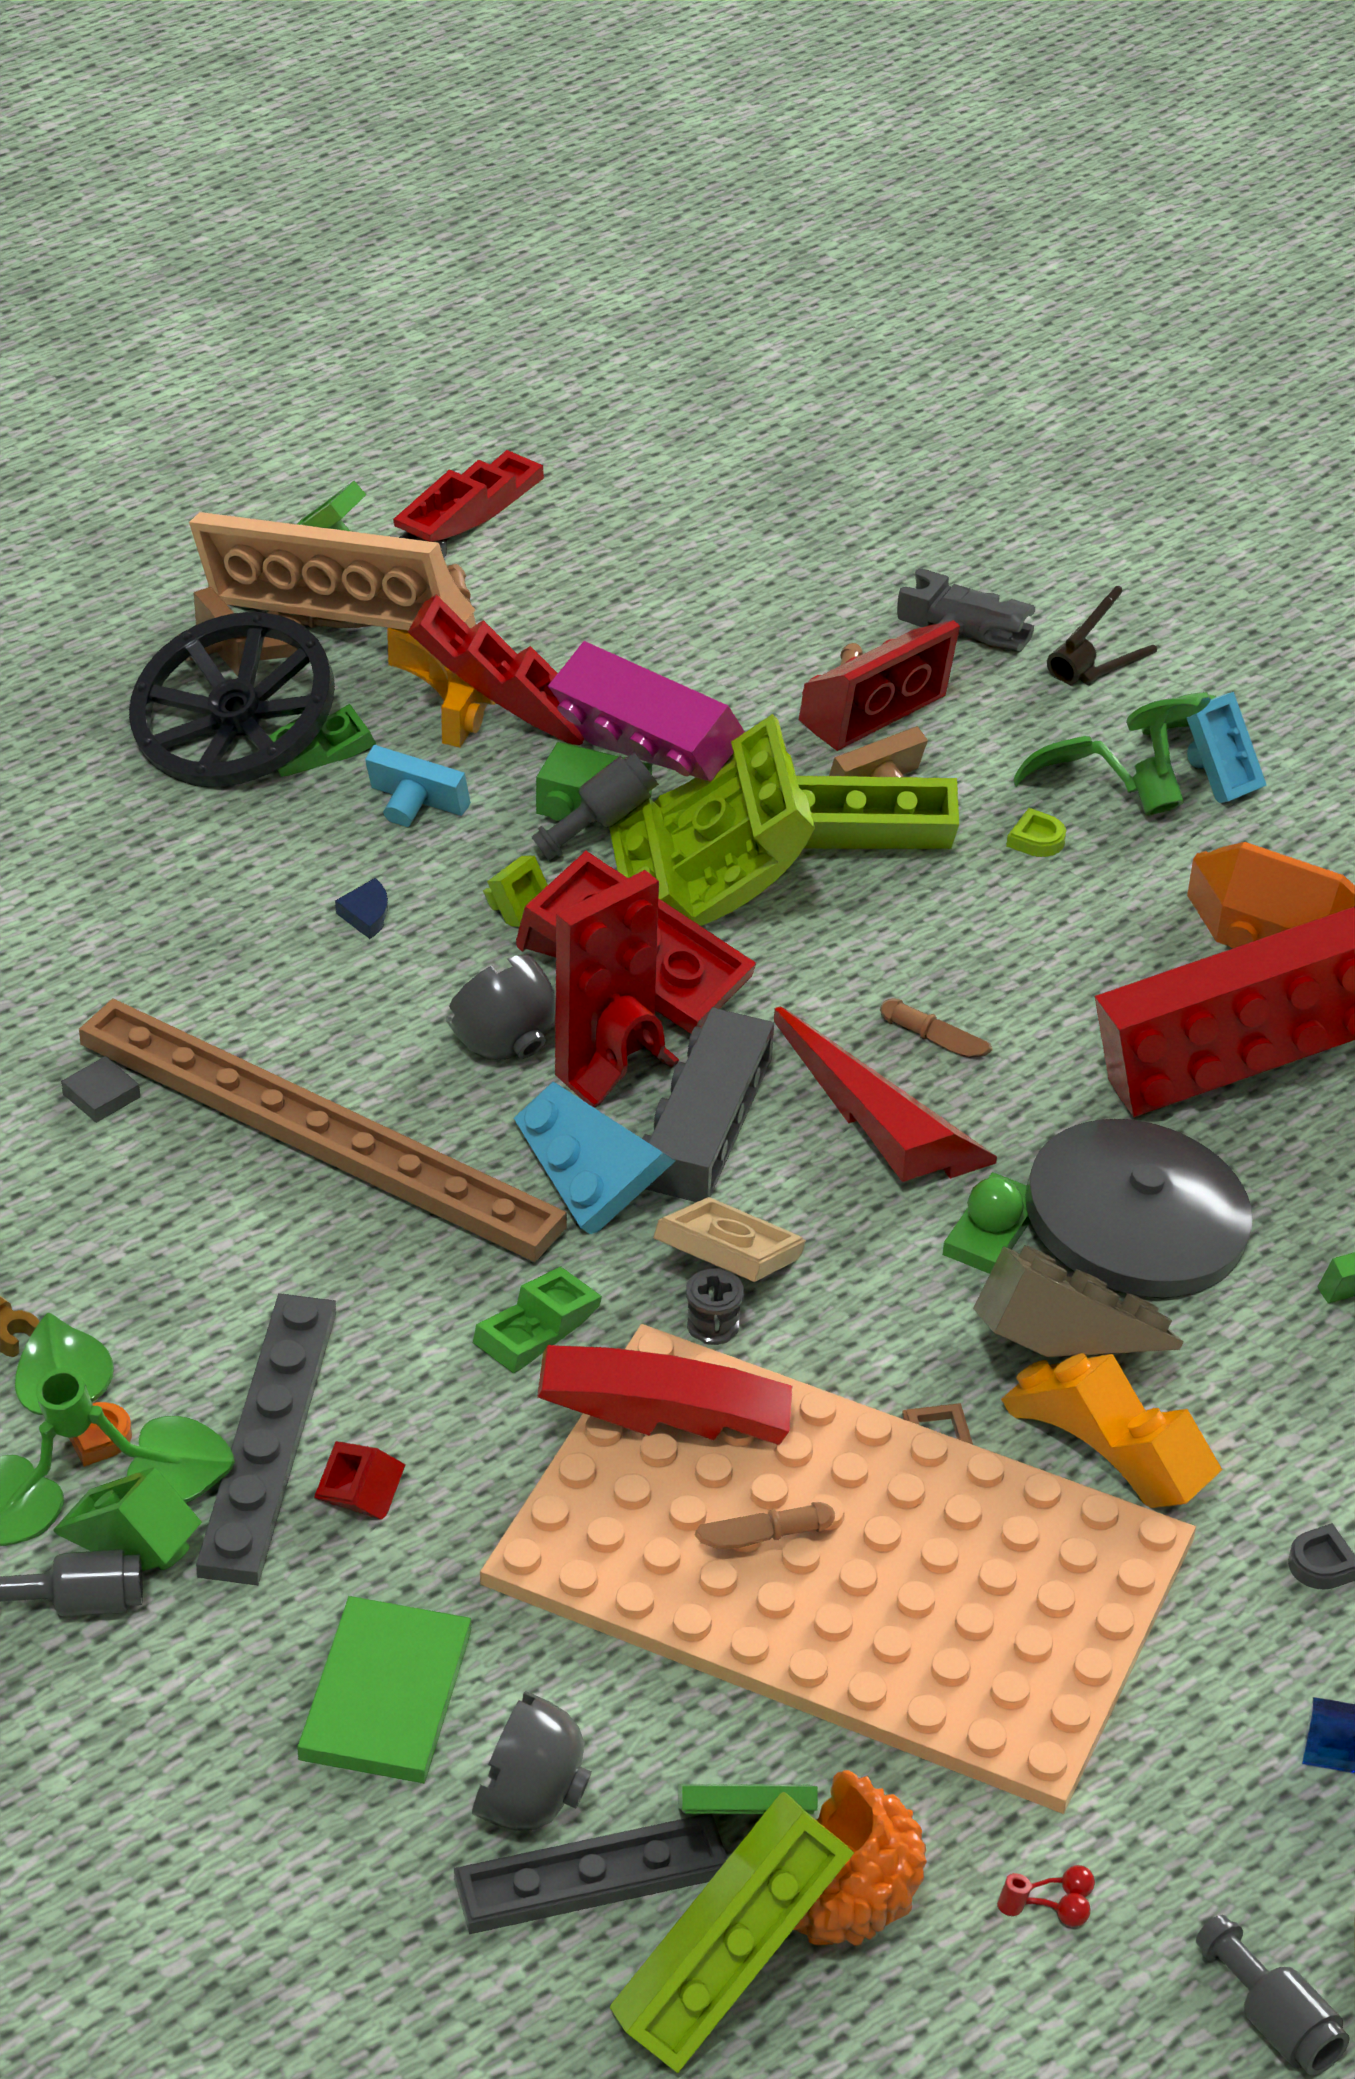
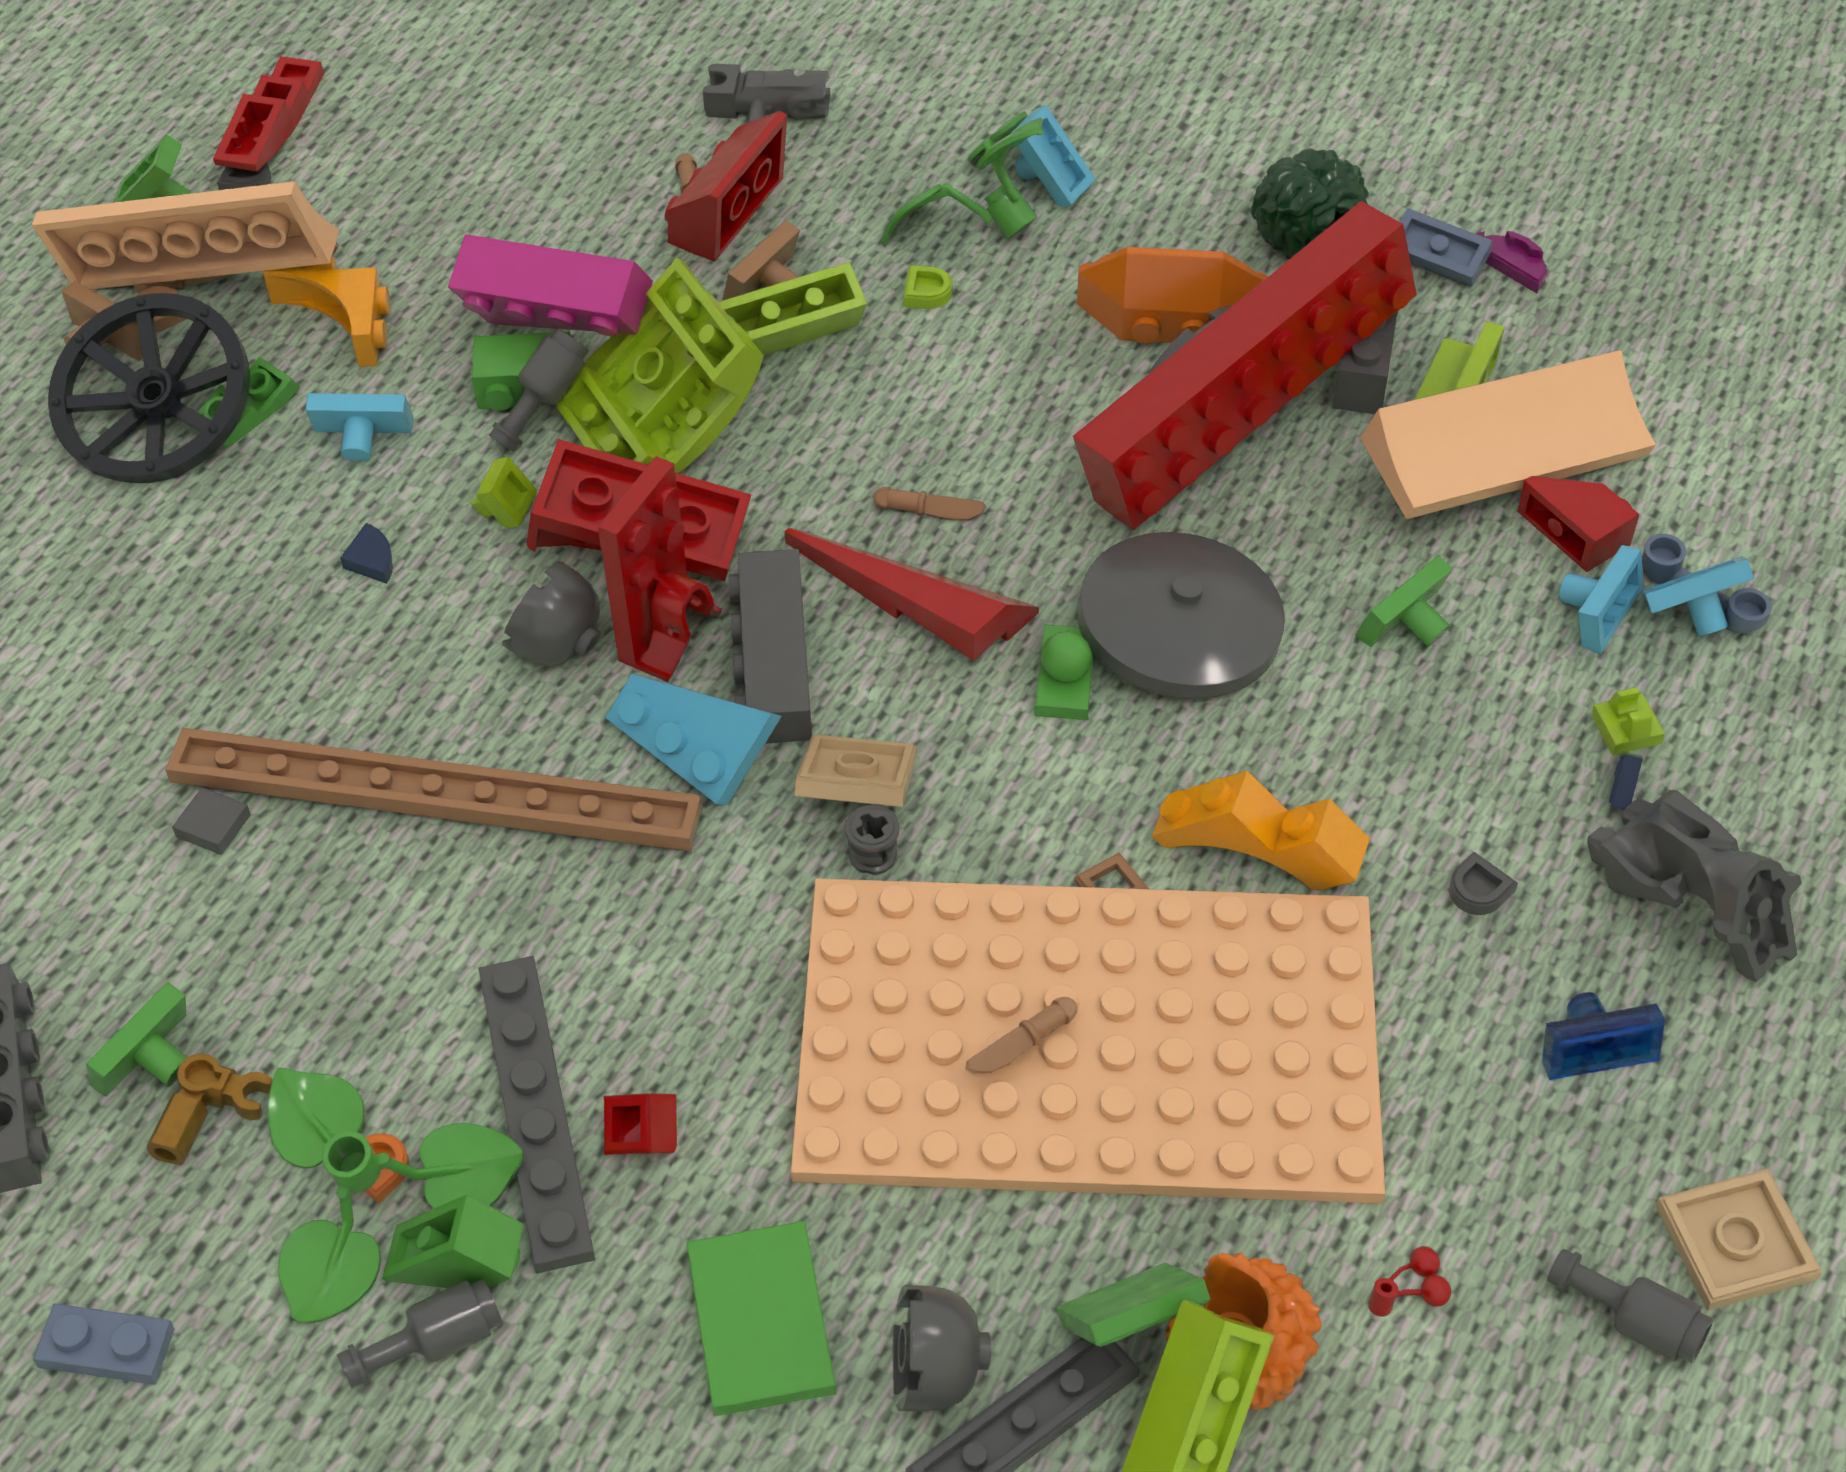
camera: 20 degrees left, 10 degrees up
(493, 667) = (374, 279): red slope -> none
(542, 1317) = (720, 907): bright green slope -> none
(652, 1388) = (878, 941): red slope -> none
(1065, 1316) = (1178, 740): dark tan slope -> none
(1076, 656) = (880, 108): dark brown plant -> none

